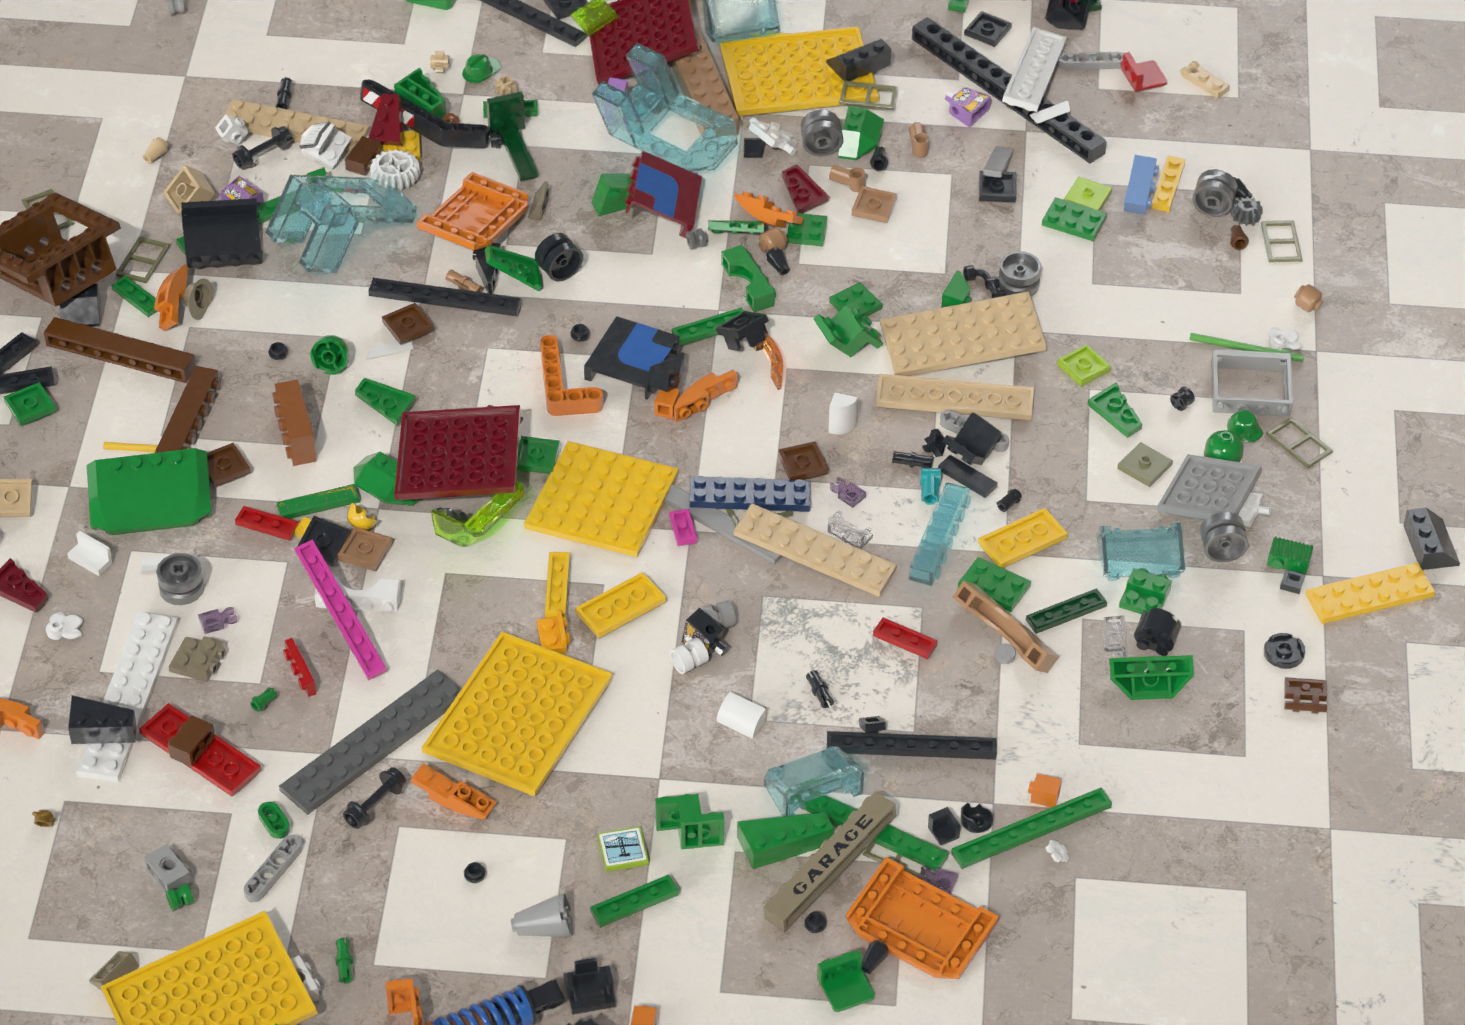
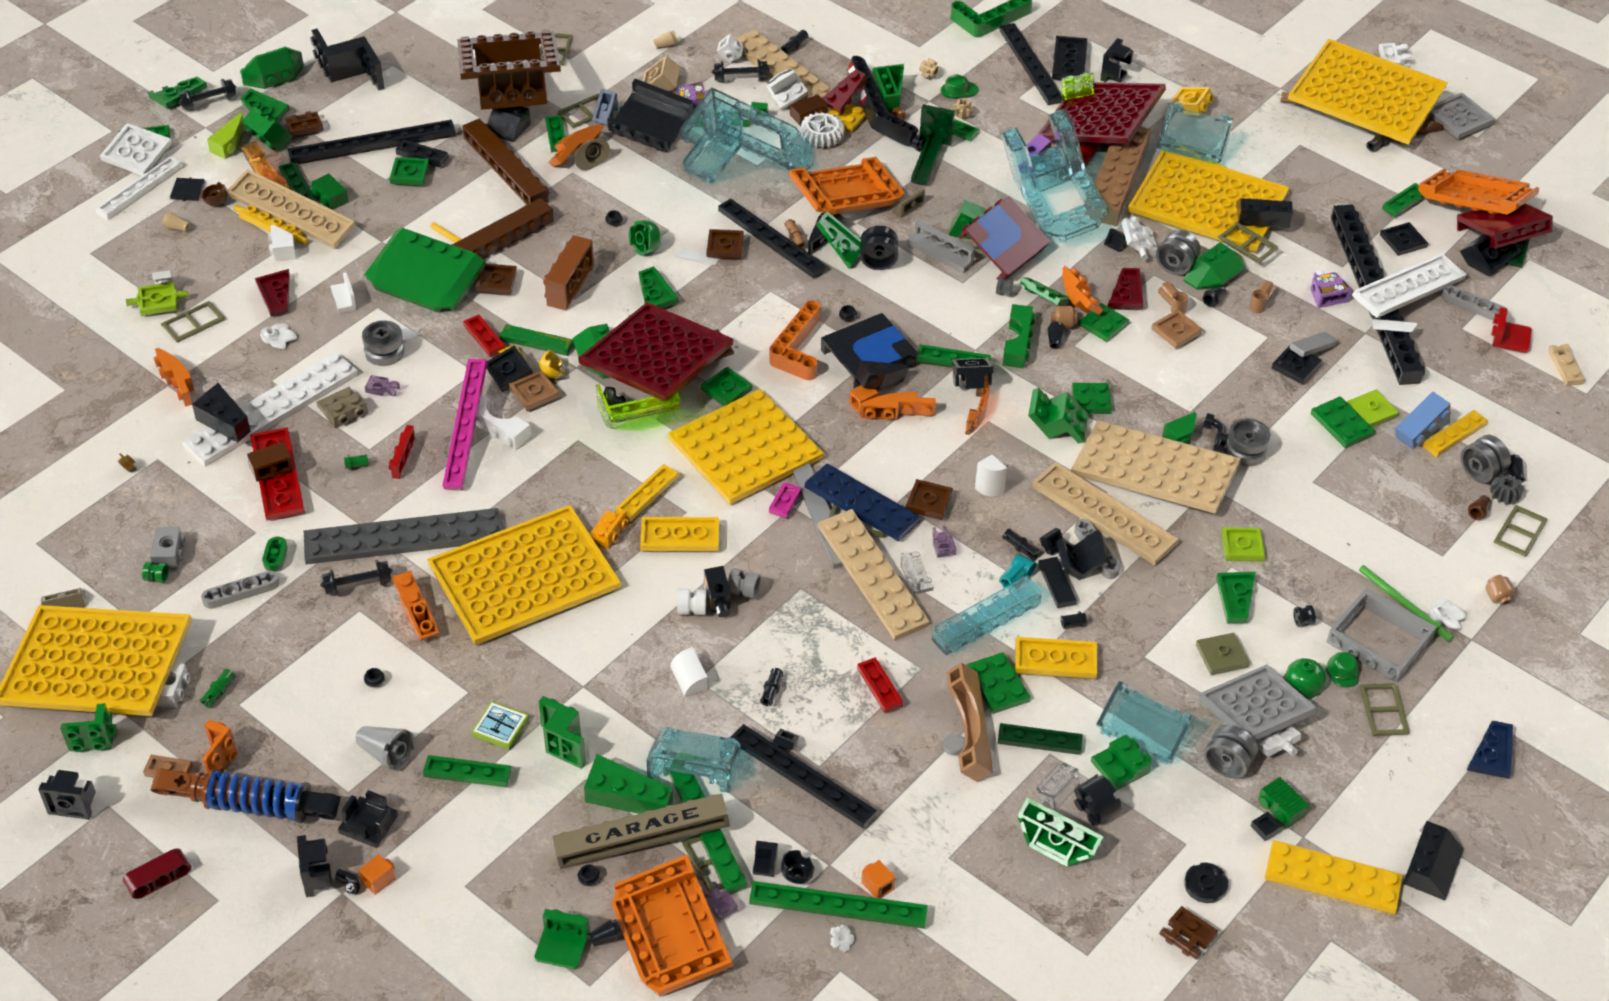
camera: 35 degrees right, 0 degrees up
(167, 246) = (606, 104): none -> sand blue slope
(607, 232) = (941, 250): none -> light grey fence
(1405, 430) = (1494, 751): none -> dark blue wing

